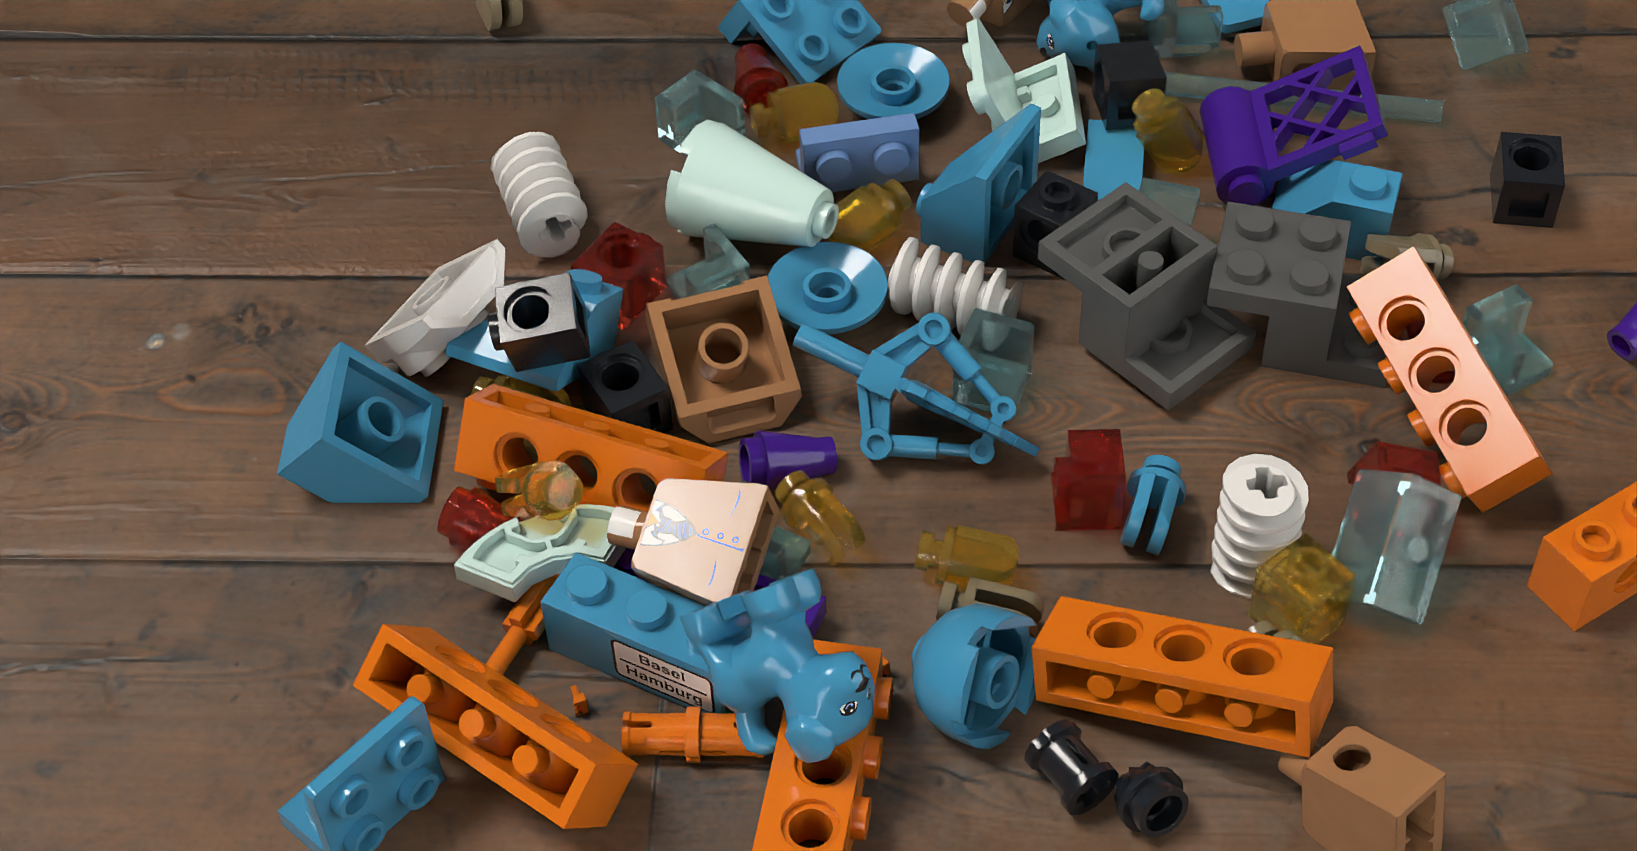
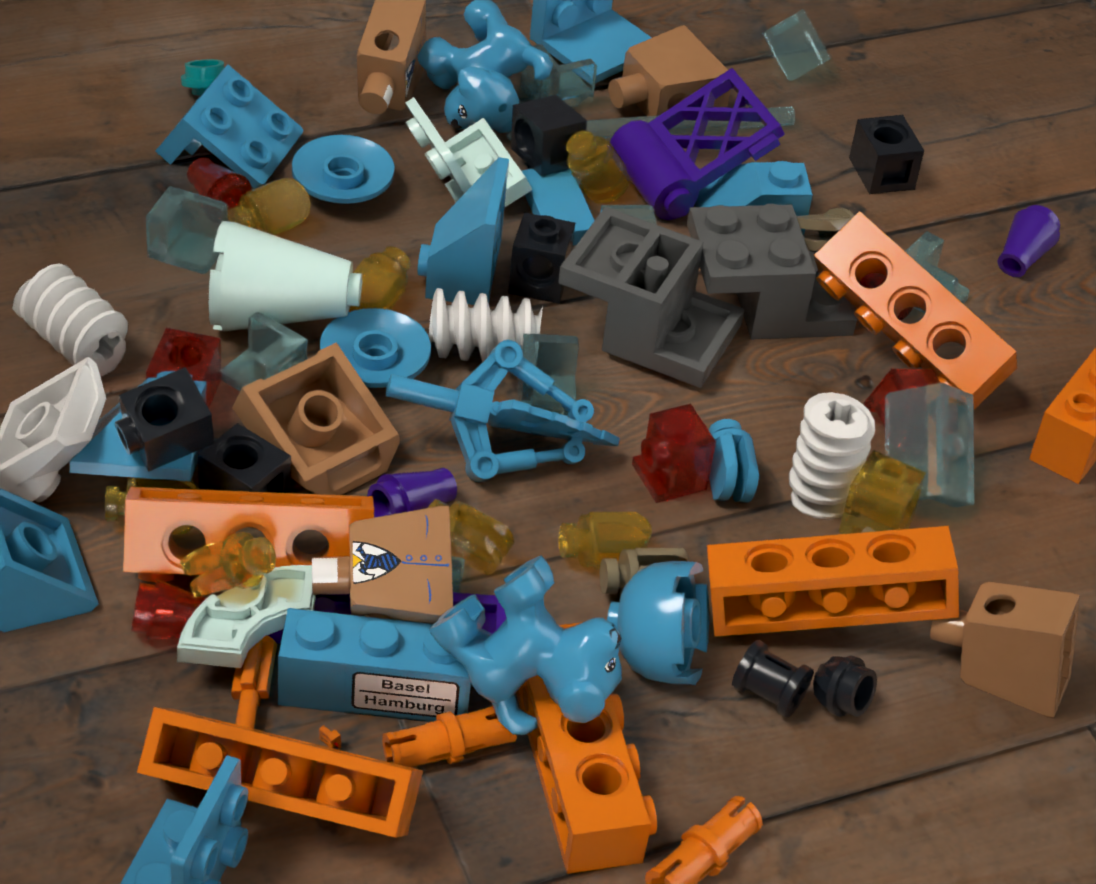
camera: 30 degrees left, 5 degrees down
(861, 152) = (355, 226): medium blue bracket -> none

